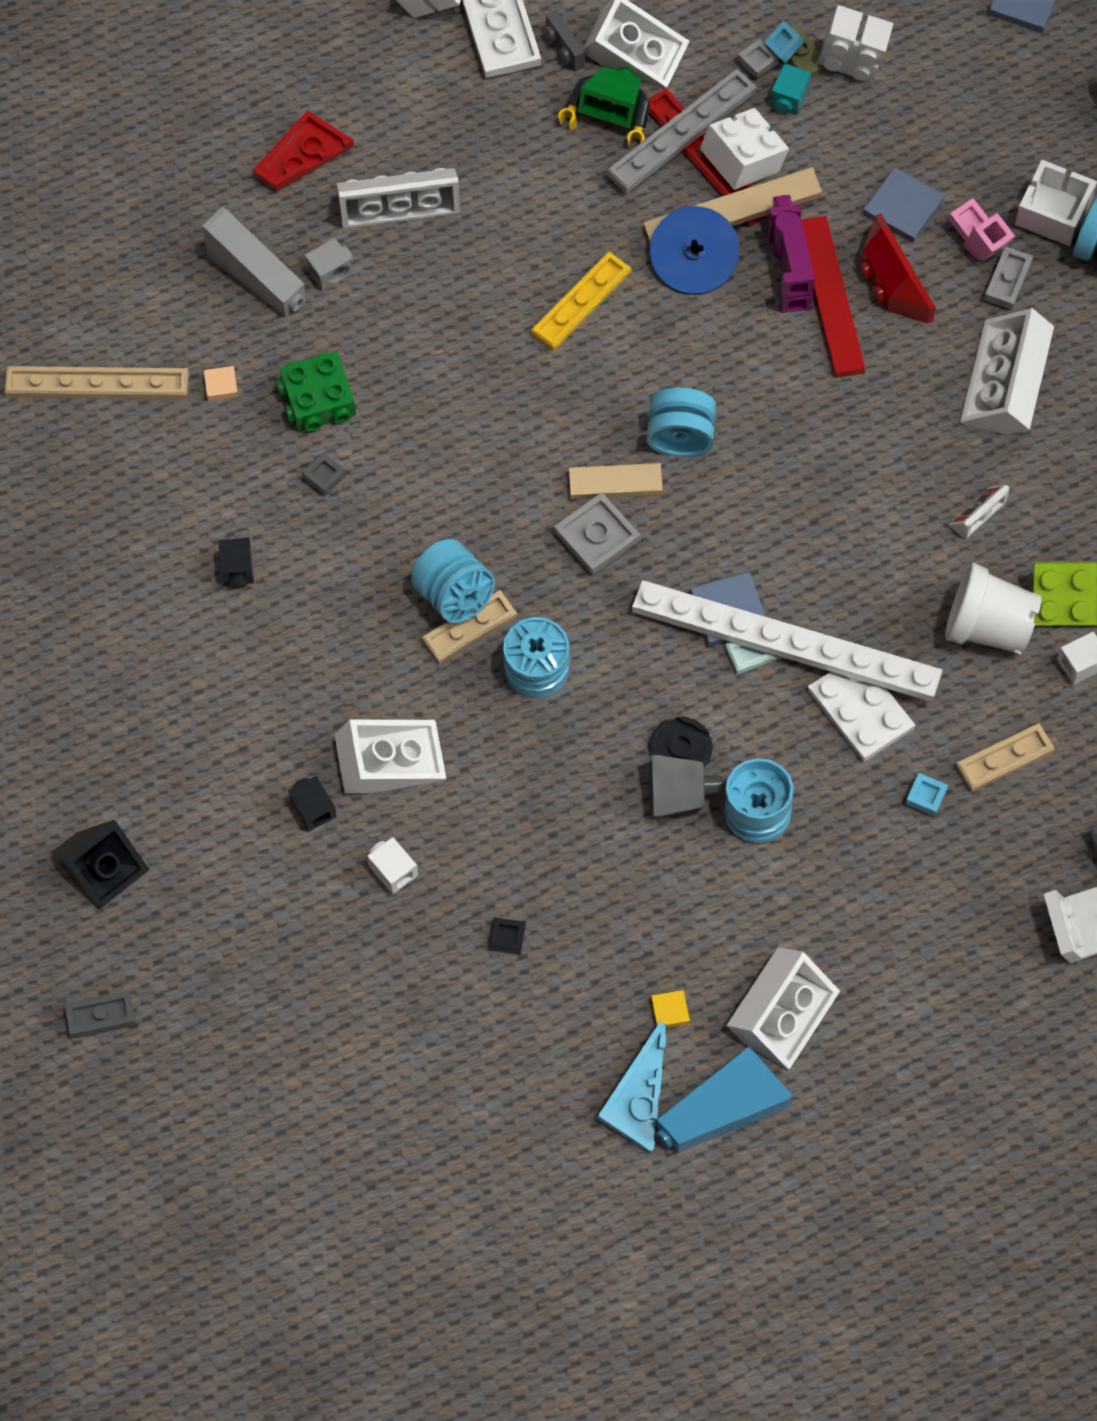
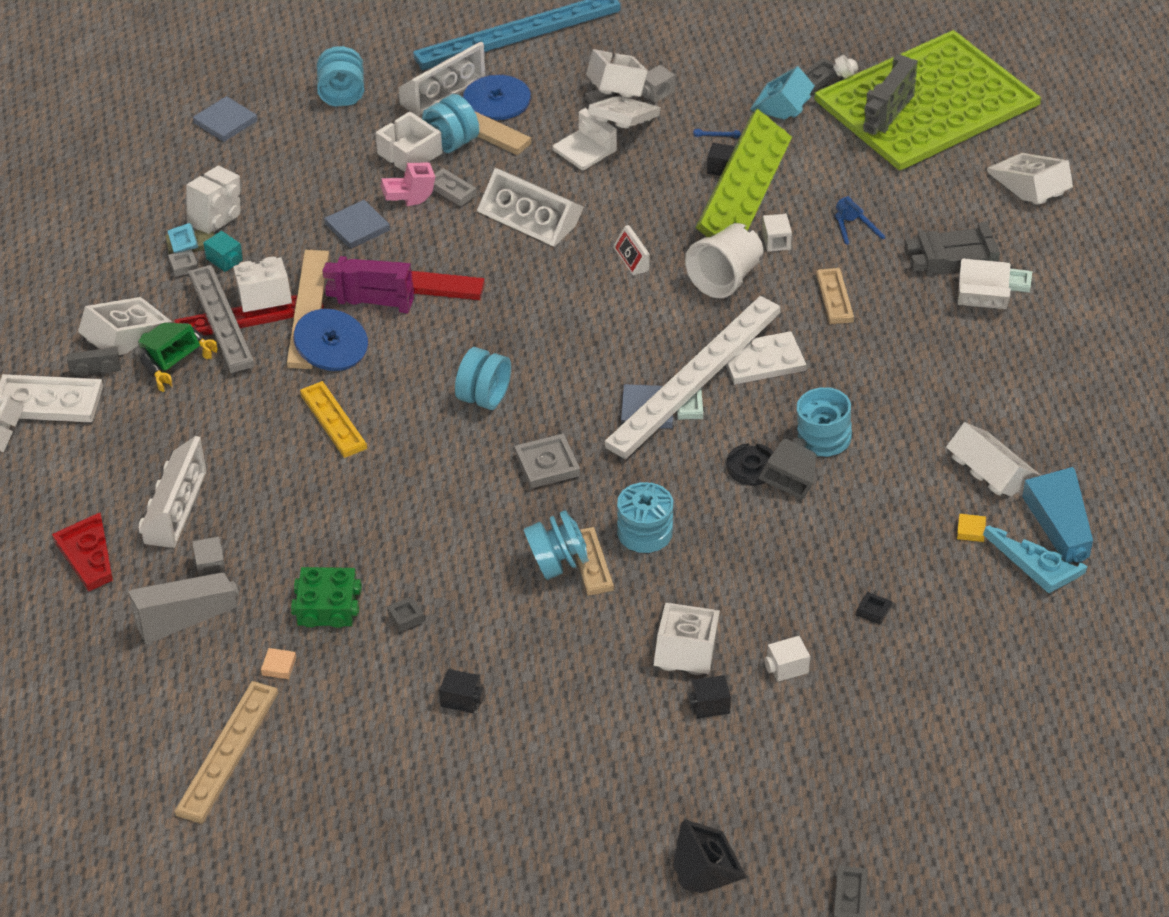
camera: 70 degrees left, 20 degrees down
(615, 481) = (505, 437): tan tile -> none
(893, 275) = (413, 235): red wedge -> none
(926, 794) = (849, 340): medium azure plate -> none

